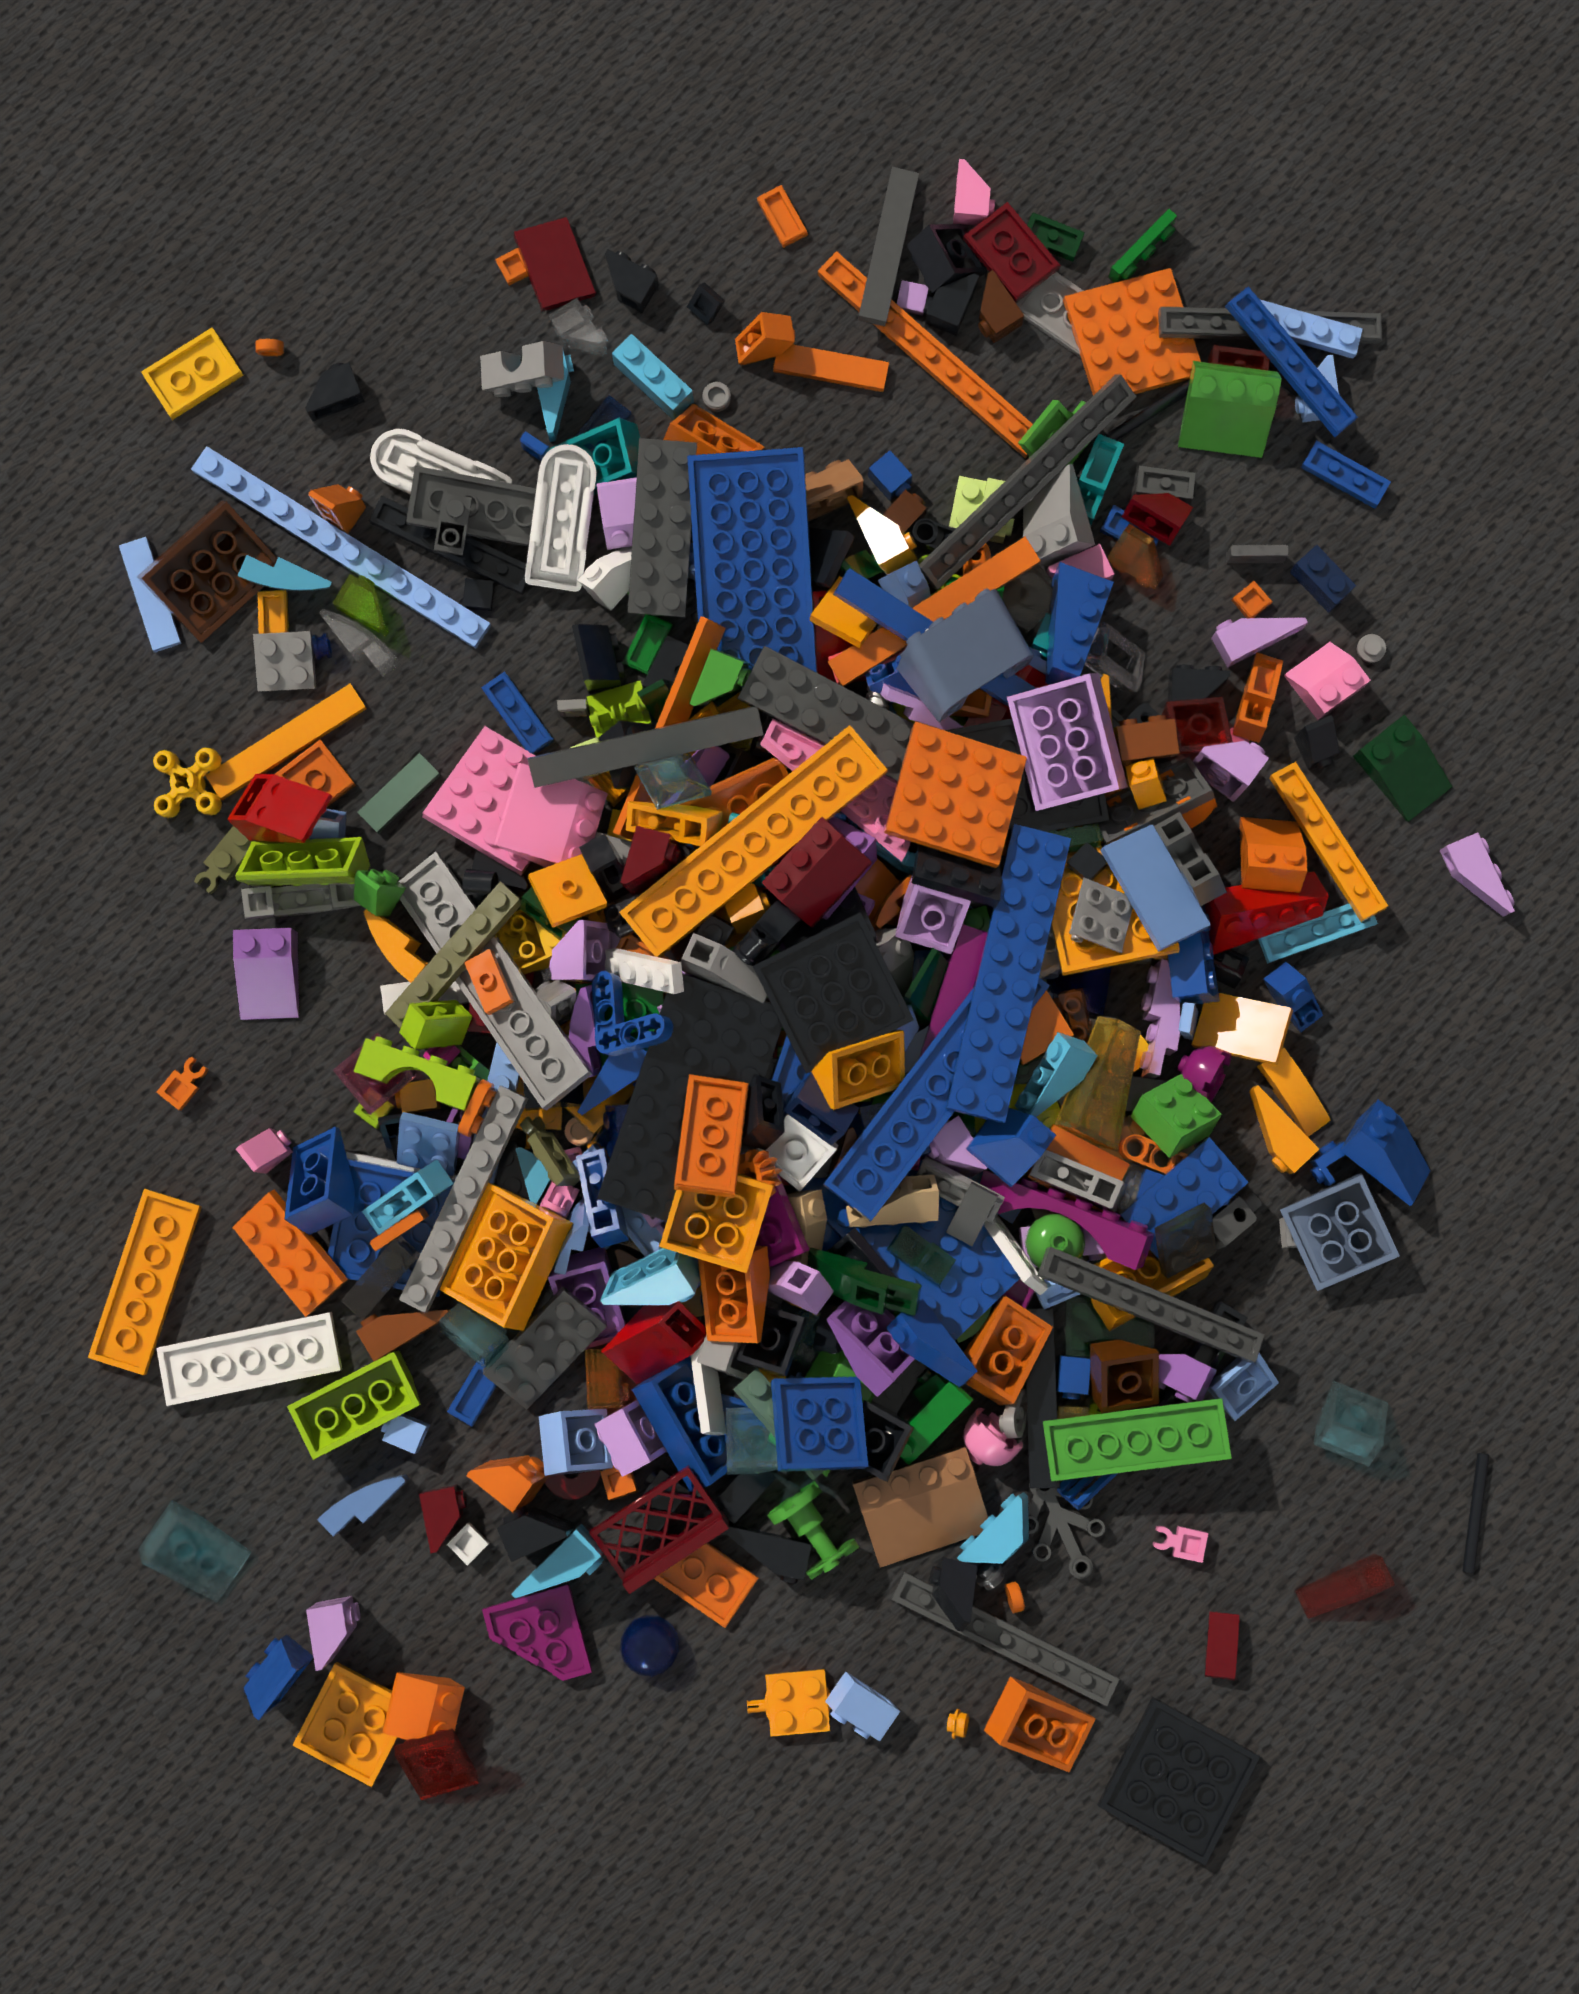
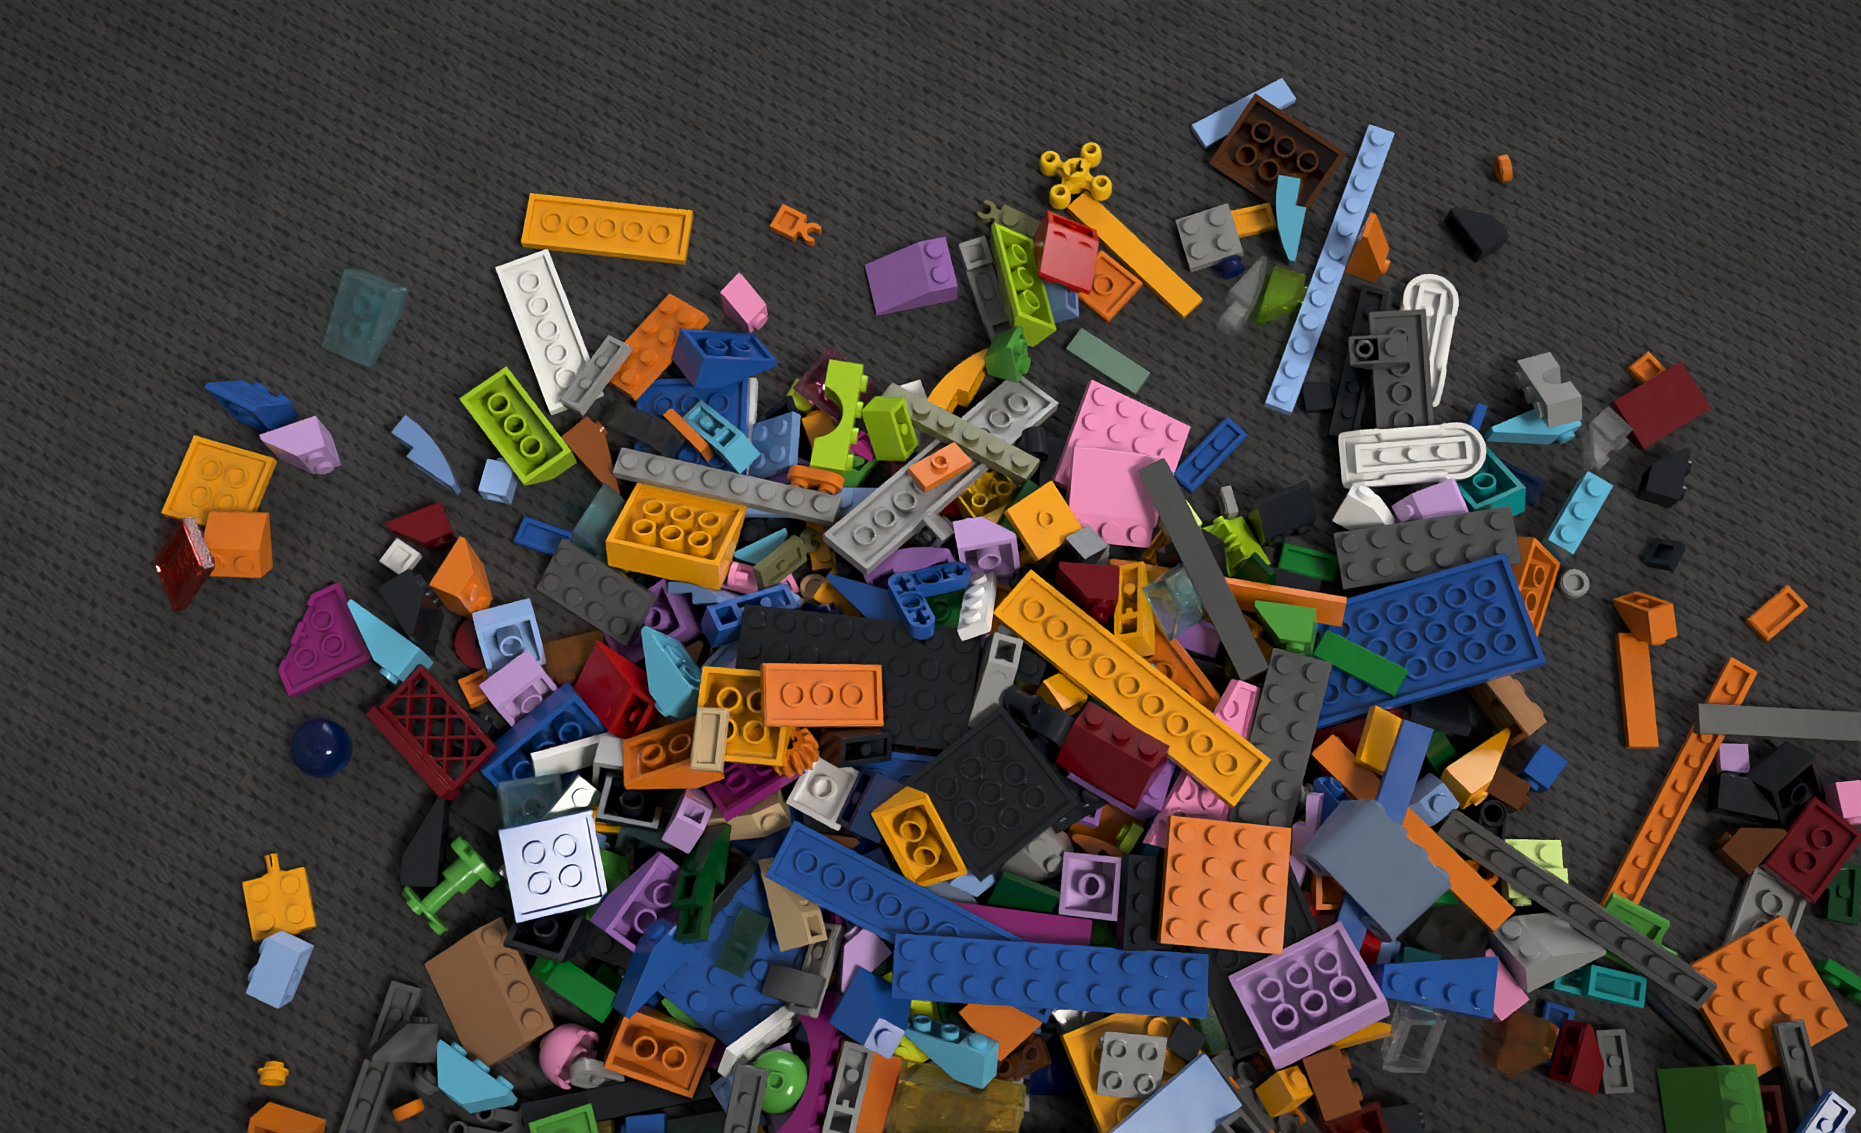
camera: 75 degrees right, 10 degrees down
(192, 373) = (1459, 109): yellow tile -> none
(312, 1316) = (595, 375): none -> light grey tile
(710, 1582) = (389, 796): orange tile -> none
(734, 1250) = (709, 739): none -> tan tile
(765, 619) = (1361, 663): none -> green tile
(887, 873) = (1128, 836): none -> lime plate

